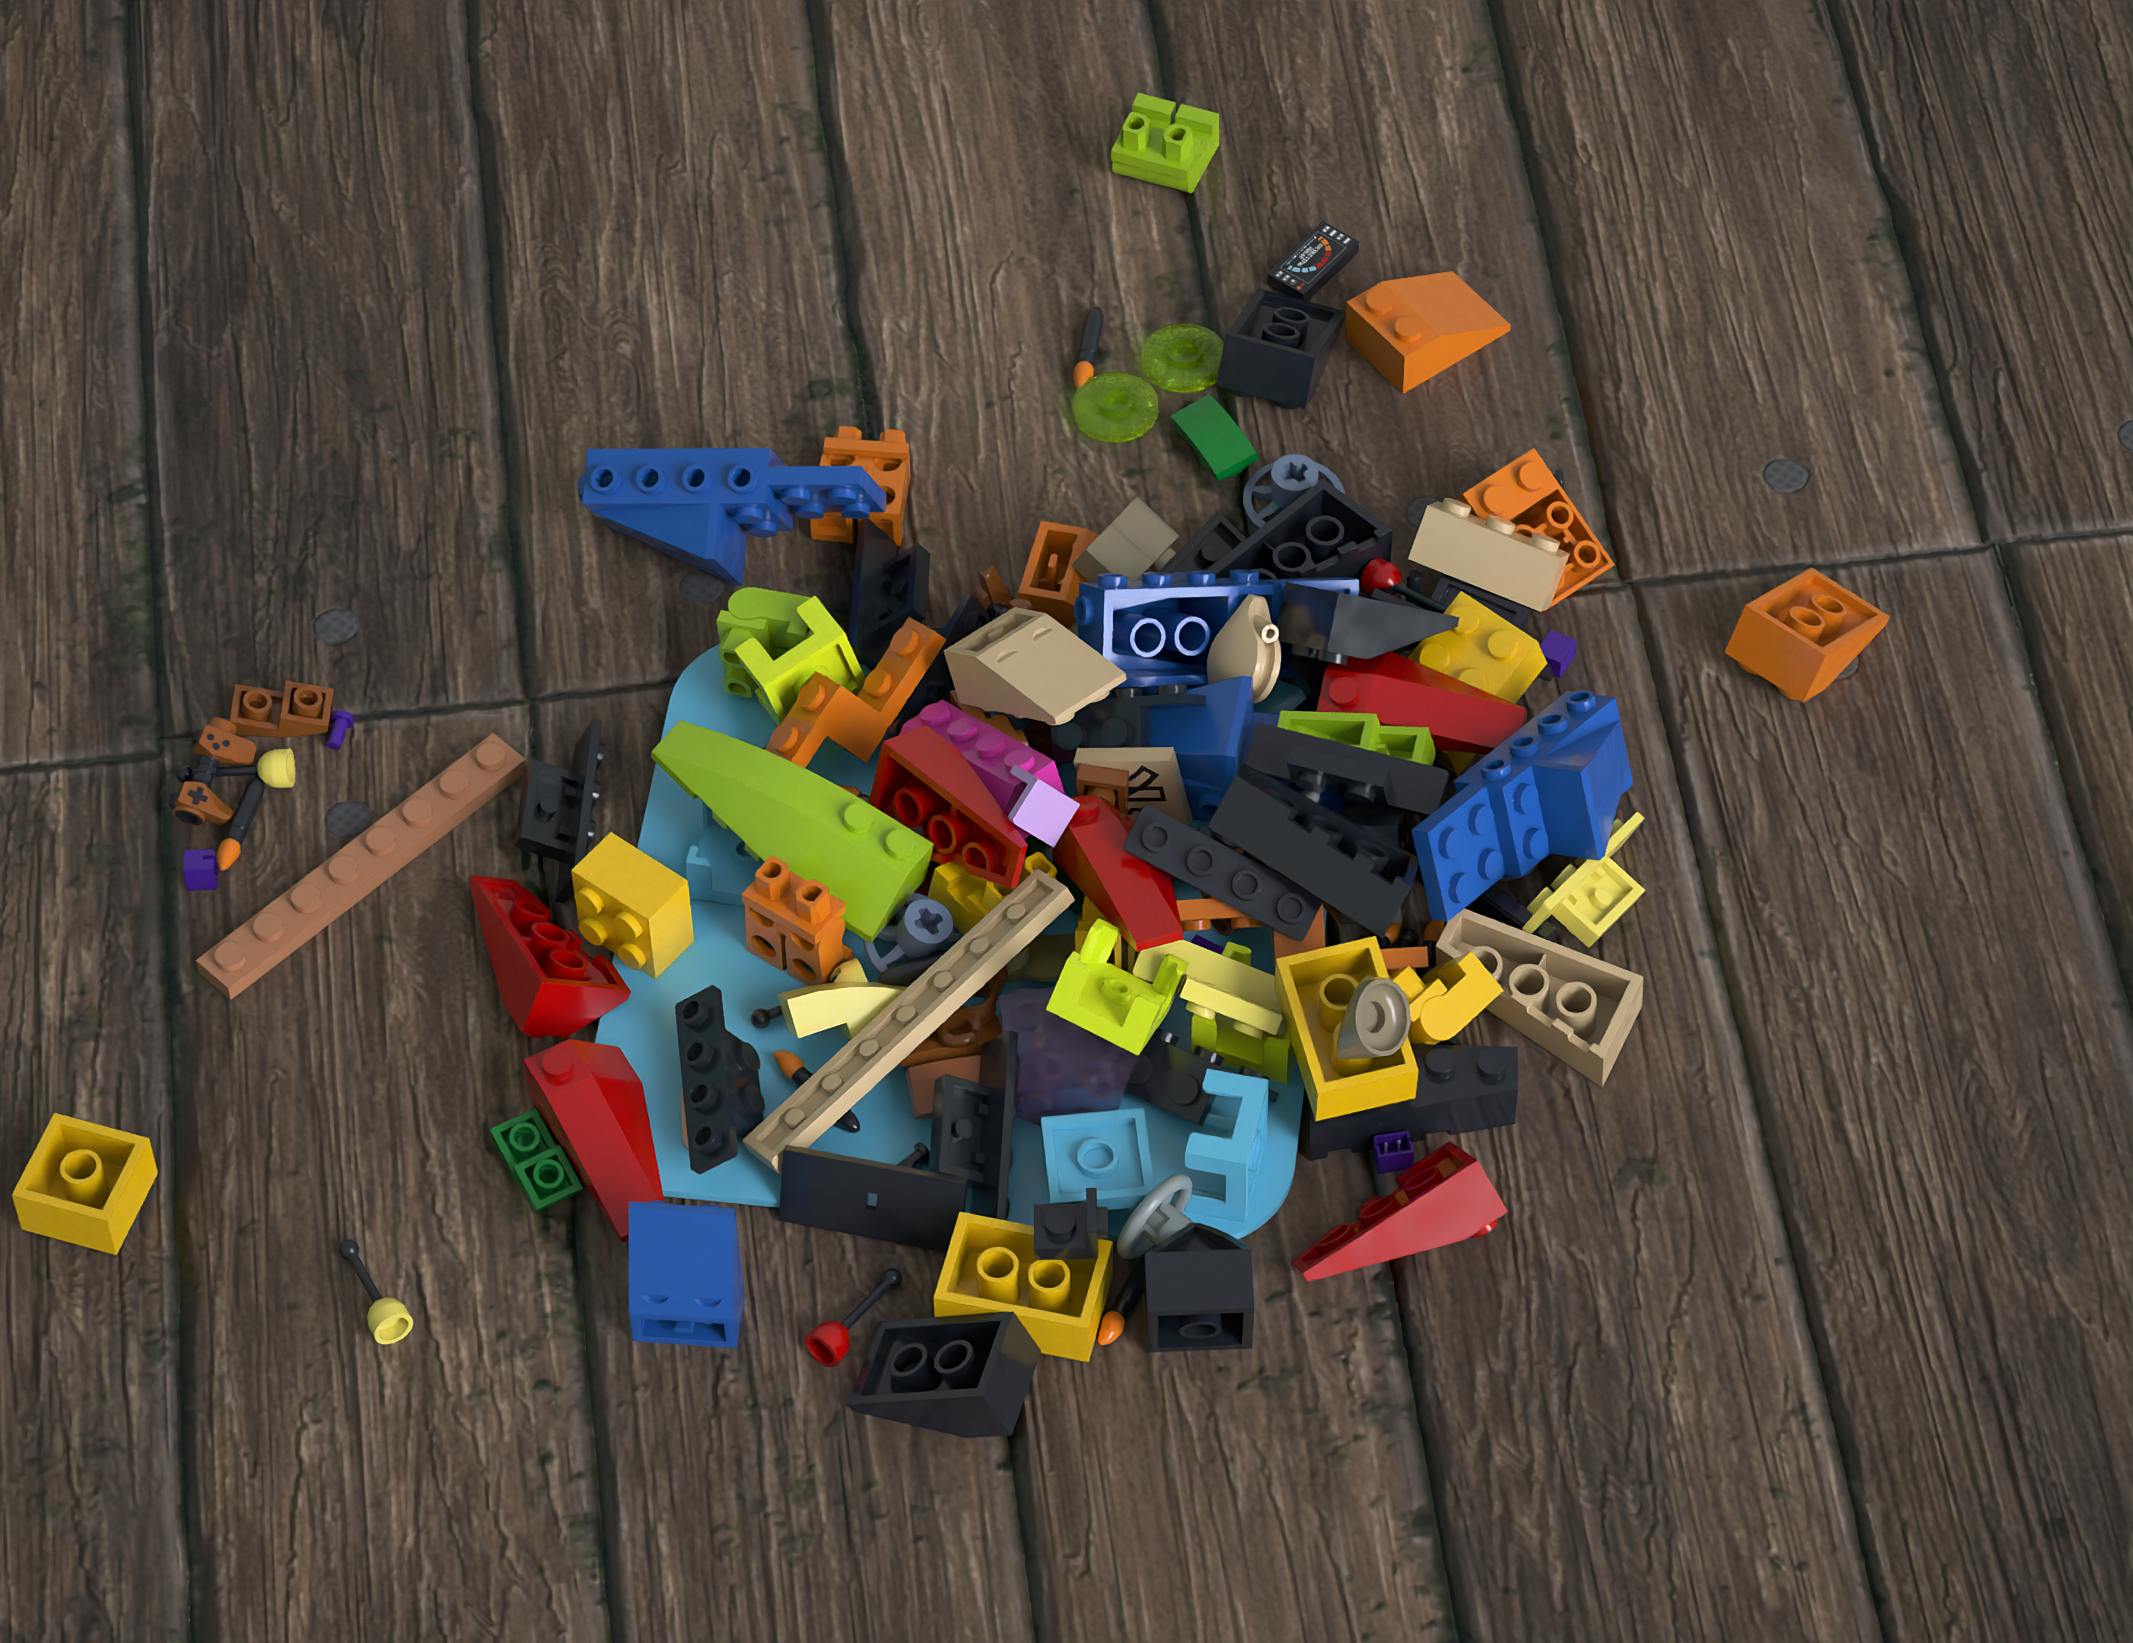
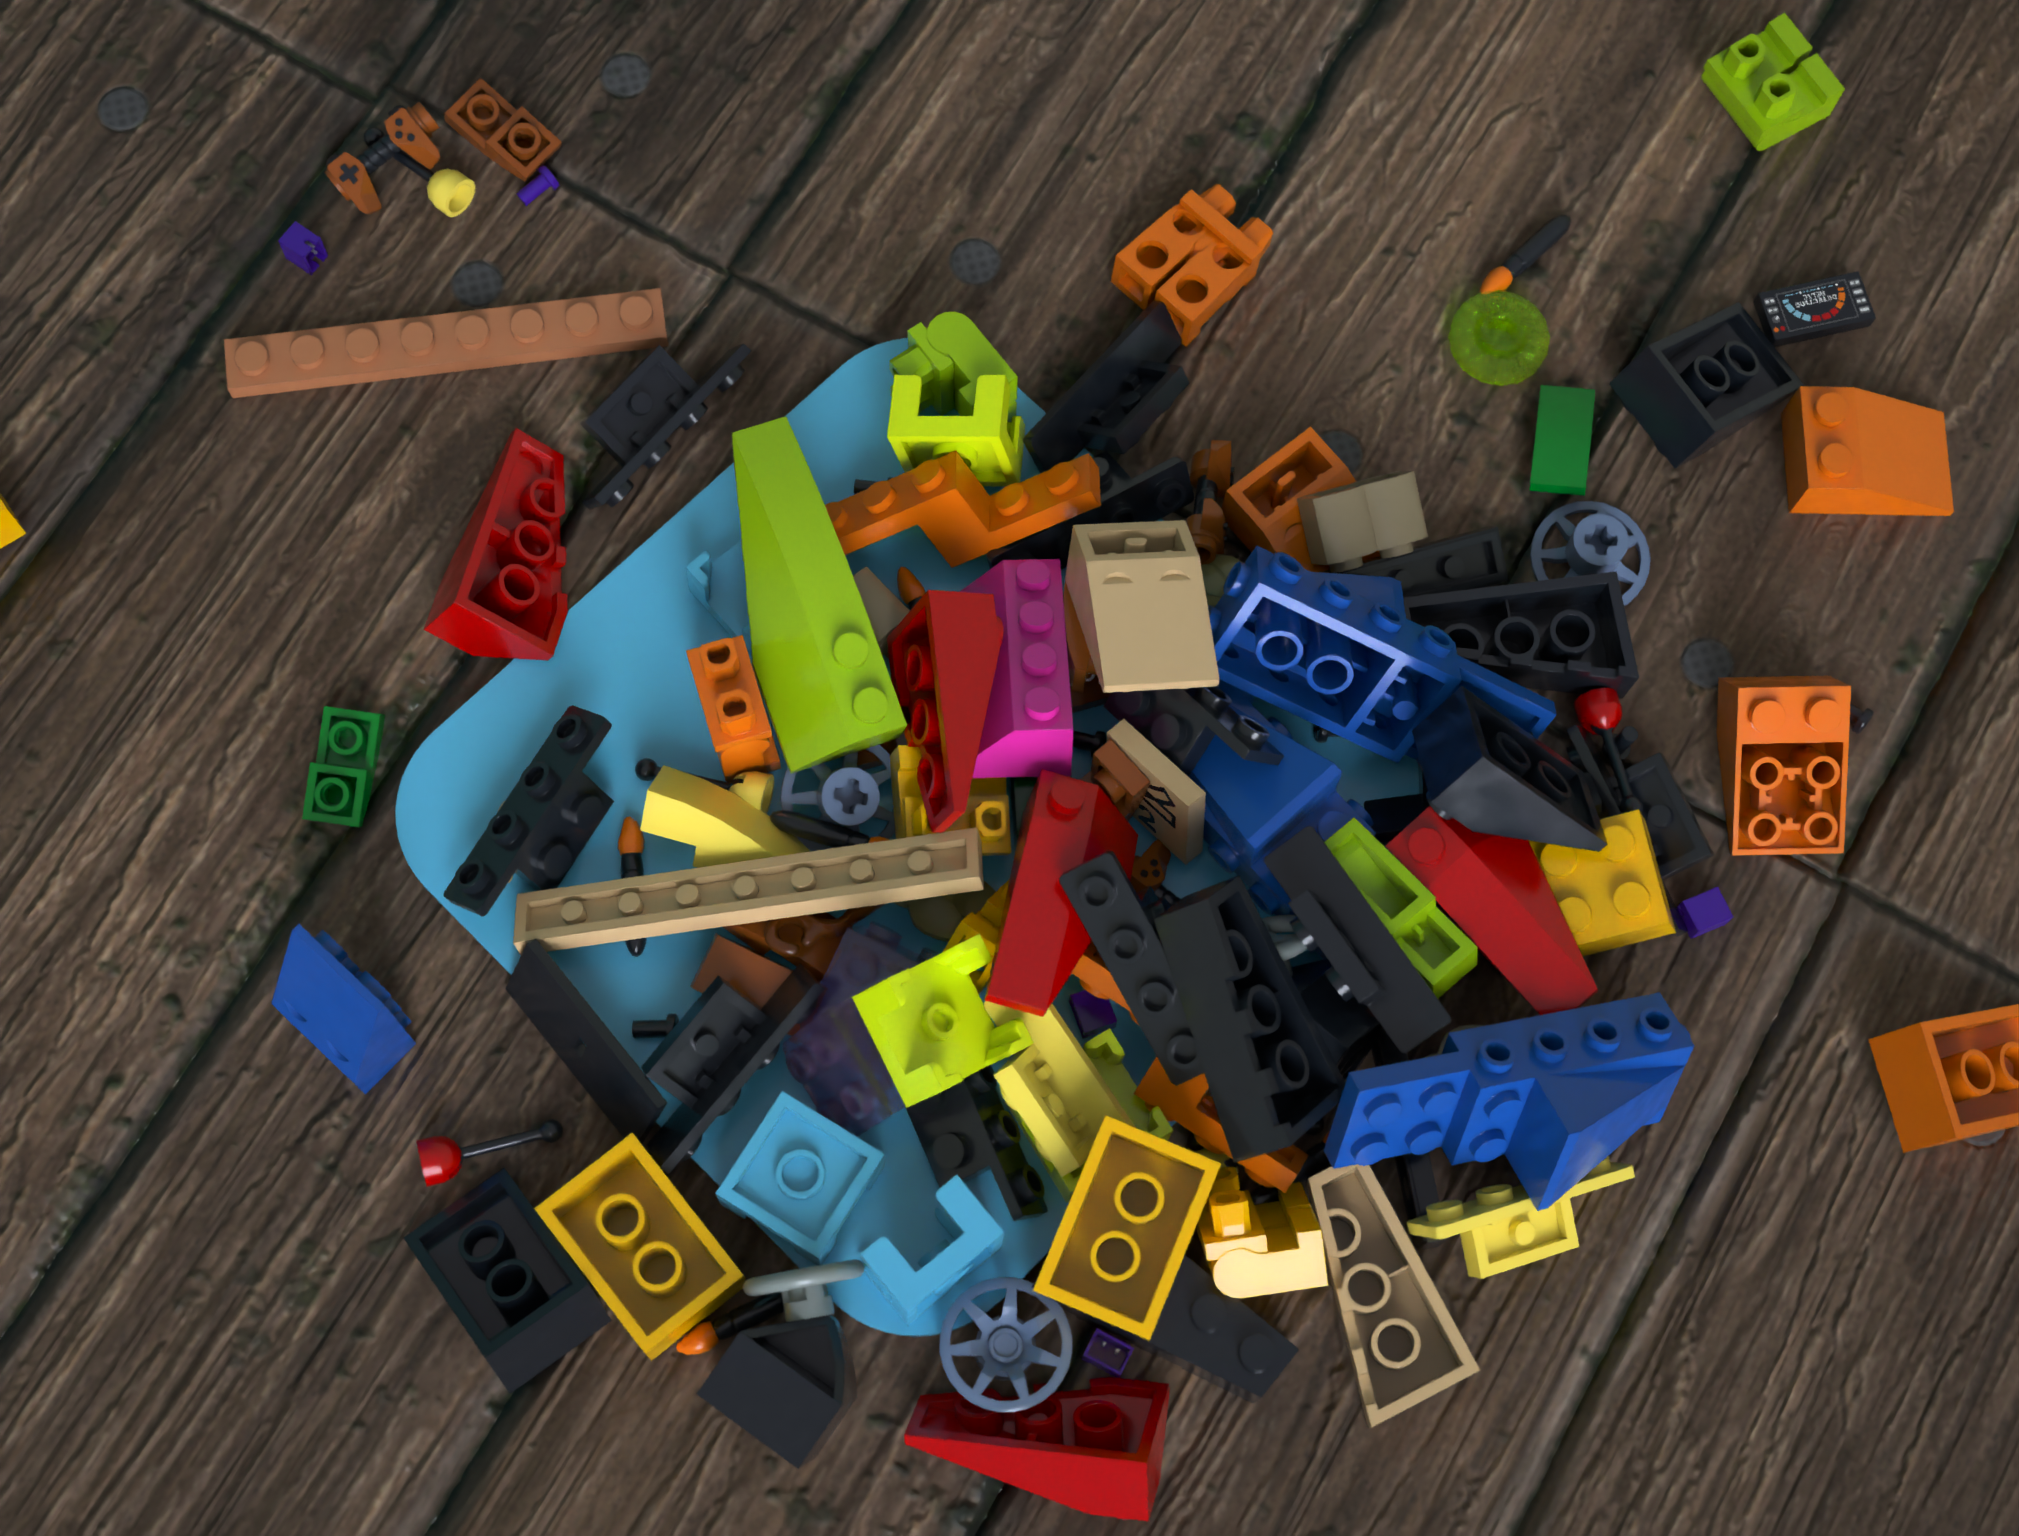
camera: 30 degrees right, 20 degrees up
(240, 823) = (376, 224): black piece -> none
(387, 1317) = (88, 833): light yellow hinge -> none
(600, 1122) = (415, 772): red wedge -> none
(632, 906) = (603, 575): yellow brick -> none
(706, 499) = (1016, 195): blue wedge -> none
(1041, 808) = (1024, 773): lavender panel -> none
(1069, 1229) = (706, 1237): black bracket -> none
(1182, 357) = (1605, 327): clear neon green wheel -> none
(1247, 648) = (1371, 728): tan hat -> none
(1322, 1184) = (1005, 1345): none -> sand blue wheel
(1374, 1020) = (1139, 1263): dark tan piece -> none
(1489, 554) = (1714, 770): tan brick -> none

